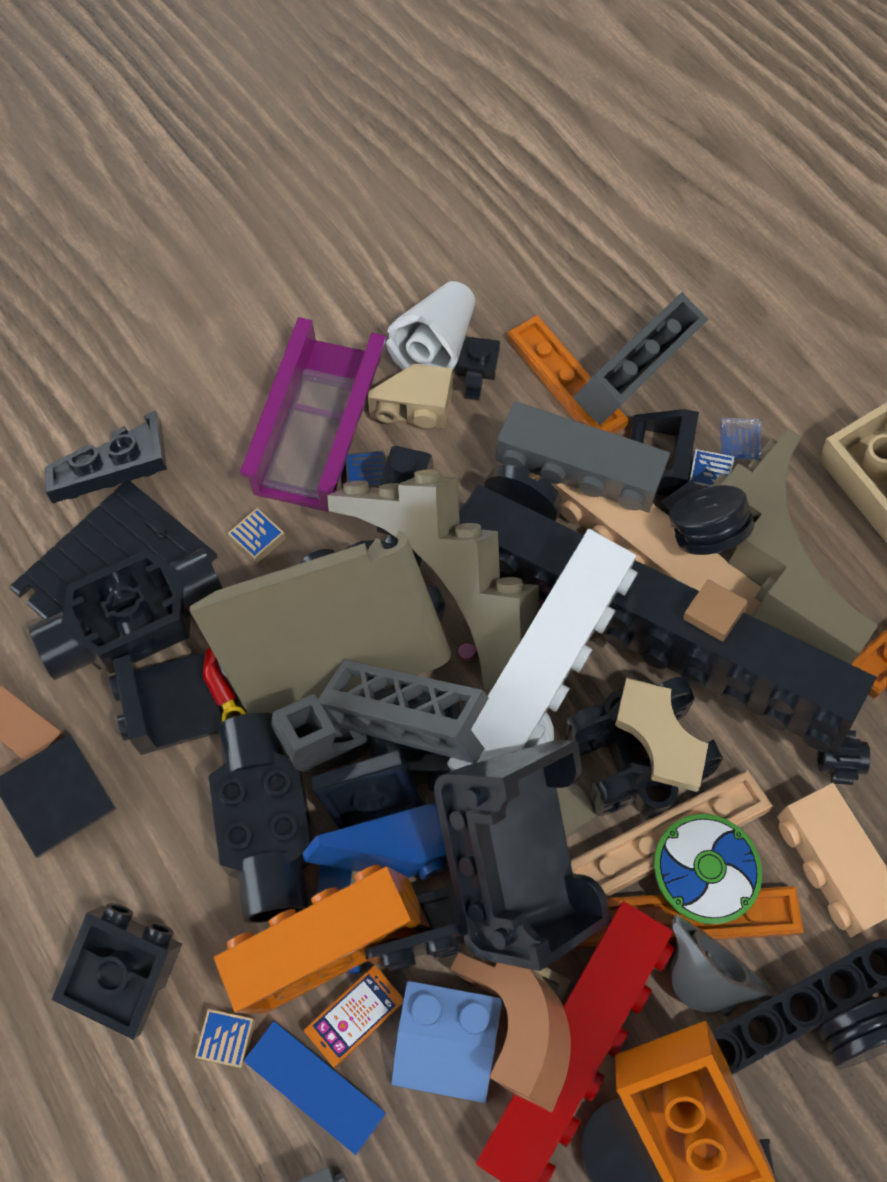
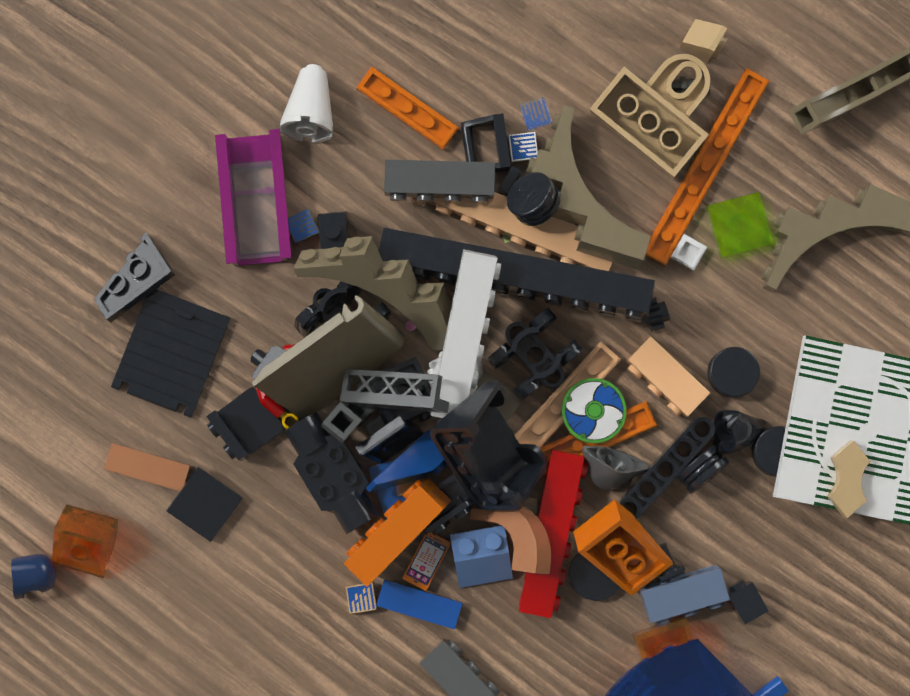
camera: 20 degrees left, 20 degrees up
(117, 969) = (287, 584): black plate -> none
(124, 611) = (199, 381): black brick -> none
(256, 536) = (250, 296): tile -> none
(414, 396) = (314, 161): tan slope -> none
(477, 362) = (344, 117): black plate -> none
(515, 485) = (408, 214): black tile -> none
(640, 358) = (454, 85): dark grey brick -> none
(673, 752) = (533, 343): tan tile -> none
(715, 610) = (552, 269): medium nougat tile -> none

